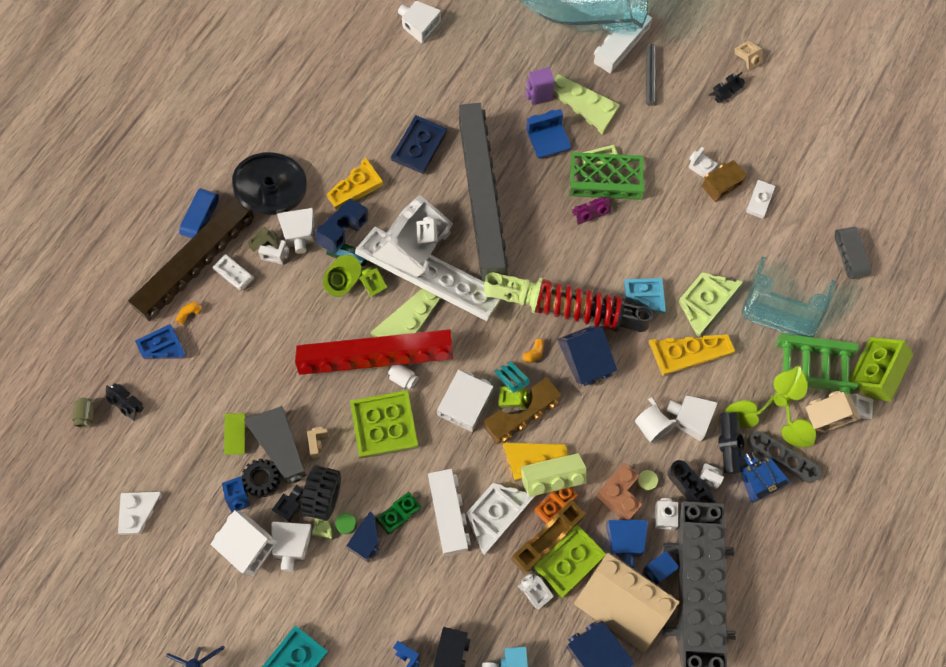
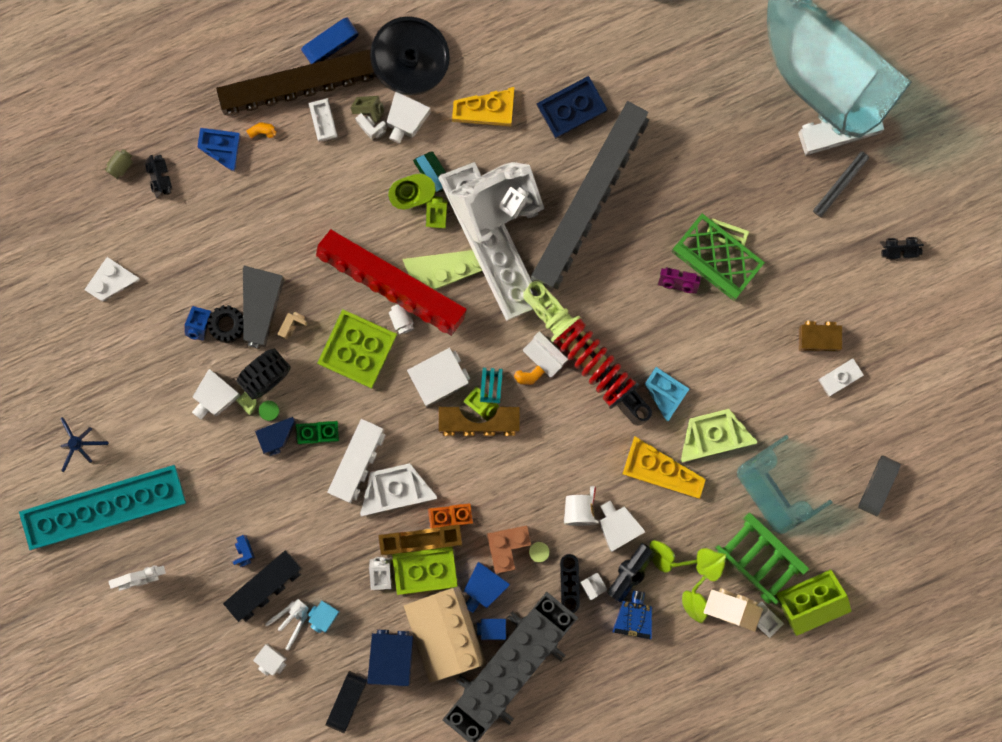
camera: 40 degrees right, 15 degrees up
(234, 433) = (229, 270): lime slope -> none
(243, 543) = (176, 370): white brick -> none
(288, 505) = (232, 362): black plate -> none
(349, 215) = (458, 136): dark blue arch -> none
(527, 453) = (460, 467): yellow wing -> none
(535, 326) = (545, 354): none -> white panel
(540, 86) = (721, 127): medium lavender brick -> none
(547, 134) = (695, 180): blue bracket -> none
(554, 475) = (463, 493): yellowish green brick -> none
(588, 354) = (570, 411): dark blue slope -> none
(592, 106) = (757, 171): yellowish green wing -> none
(666, 514) = (531, 590): white brick -> none
(701, 163) = (815, 306): white bracket -> none
(750, 53) = (950, 229): tan bracket -> none
(782, 460) = (670, 614): dark grey beam -> none

